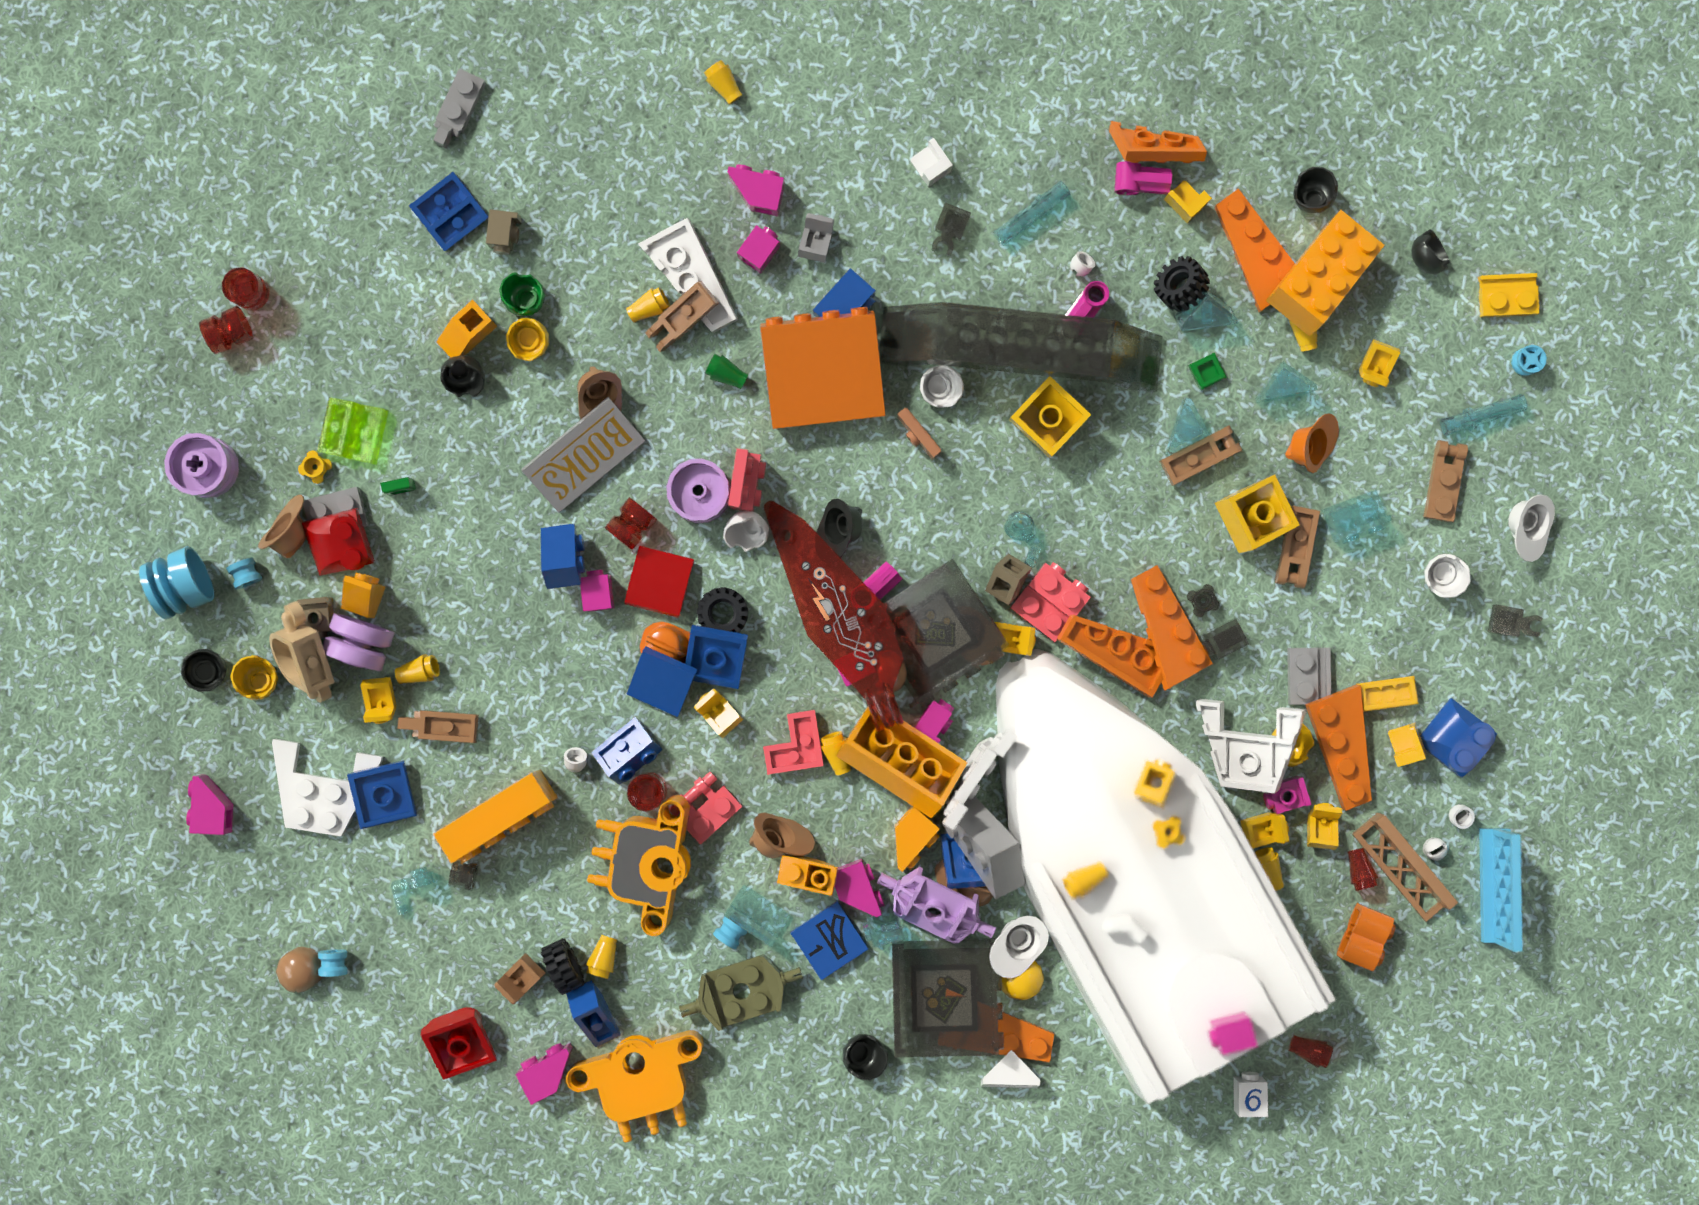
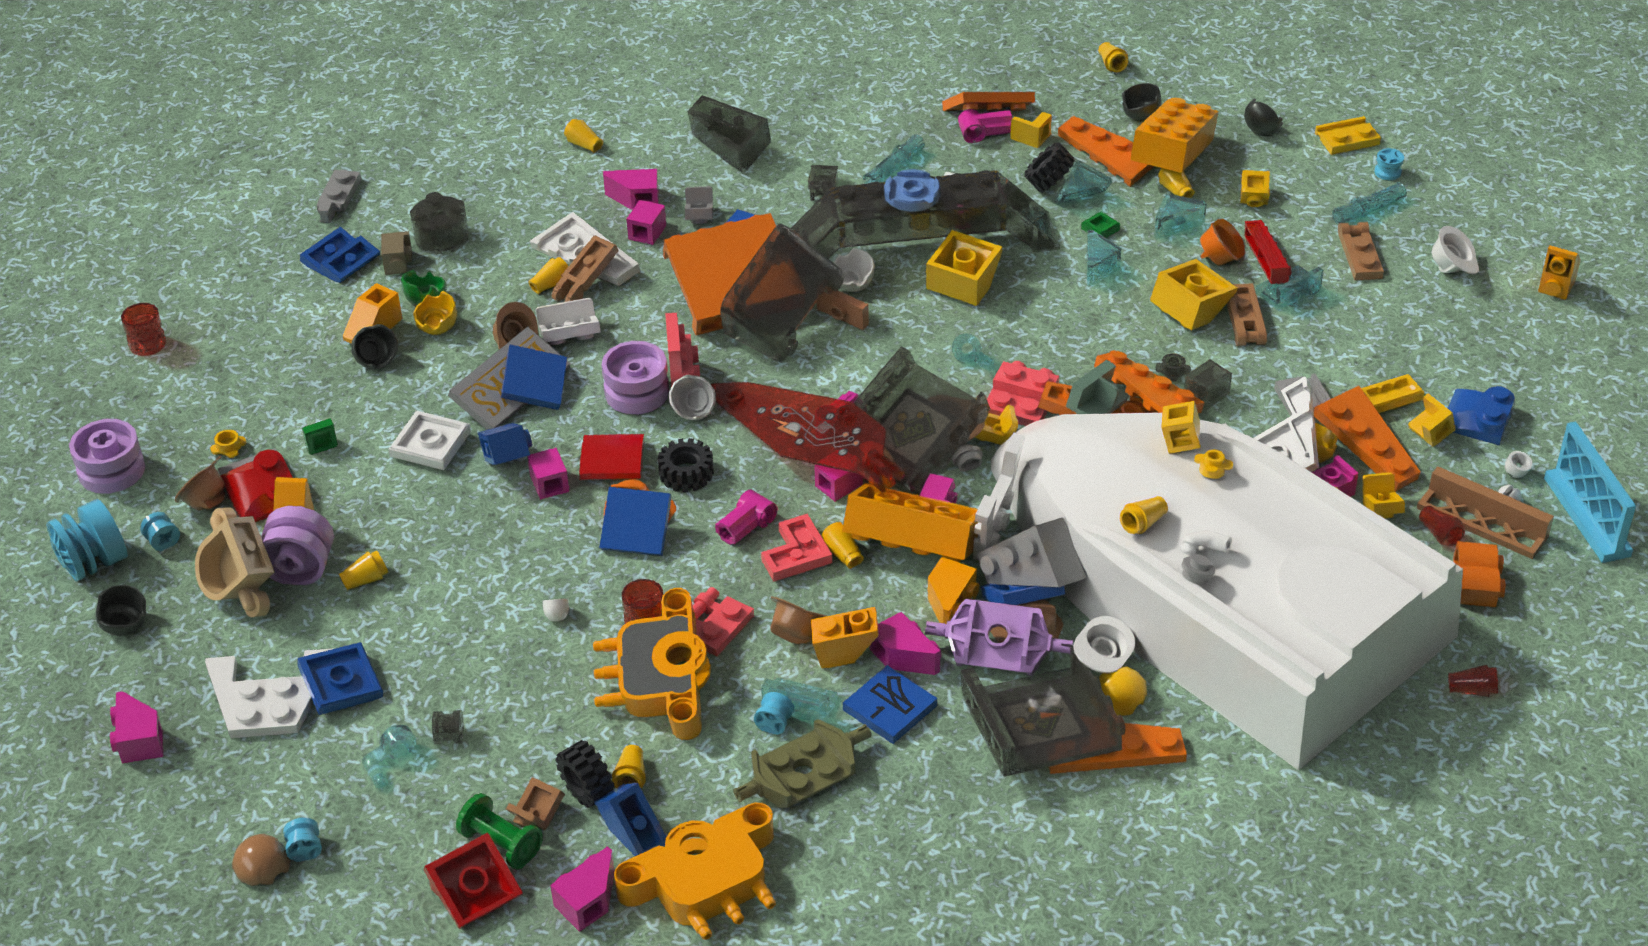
camera: 10 degrees left, 45 degrees down
(225, 330) = (127, 360): clear red wheel -> none
(254, 677) = (178, 607): yellow hair -> none
(352, 431) = (265, 414): clear neon green slope -> none
(378, 700) = (323, 599): yellow bracket -> none
(442, 726) = (396, 609): medium nougat hinge -> none
(487, 1000) = (479, 818): none -> green hose
(498, 514) = (430, 440): none -> white plate
(500, 813) = (477, 654): light orange brick -> none
(556, 184) = (439, 224): none -> clear smoke brick
(605, 462) = (534, 377): none -> blue tile
(626, 751) = (605, 589): bracket -> none
(630, 523) = (571, 415): clear red wheel -> none
(652, 386) = (567, 321): none -> white bracket
(716, 656) = (693, 491): blue tile -> none
(718, 712) = (702, 539): yellow bracket -> none
(724, 371) = (637, 303): green cone -> none
(765, 692) = (750, 512): none -> dark pink piece
(840, 525) = (788, 370): pearl dark grey piece -> none
(860, 428) = (778, 293): none -> clear smoke windscreen
(865, 1057) = (968, 790): pearl dark grey hair -> none
(873, 129) = (729, 131): none -> clear smoke wedge
(889, 932) = (945, 660): clear light blue bracket -> none
(931, 163) = (794, 147): white panel -> none
(980, 677) = (967, 457): none -> light grey plate
(1008, 579) = (968, 371): dark tan brick -> none
(1011, 1073) = (1148, 774): white slope -> none
(1018, 341) = (912, 190): none -> medium blue tile
(1107, 957) = (1197, 569): none -> light grey plate
(1113, 647) = (1095, 392): none -> sand green panel
(1199, 456) = (1120, 274): medium nougat plate -> none
(1232, 1033) = (1364, 591): dark pink brick -> none
(1250, 1095) = (1429, 732): white brick -> none
(1315, 98) = (1113, 57): none -> yellow cone
(1350, 470) = (1267, 252): none -> red piece
(1447, 576) = (1398, 301): white hair -> none
(1510, 621) = (1480, 325): clear smoke plate -> none
(1618, 580) = (1559, 272): none -> light orange slope

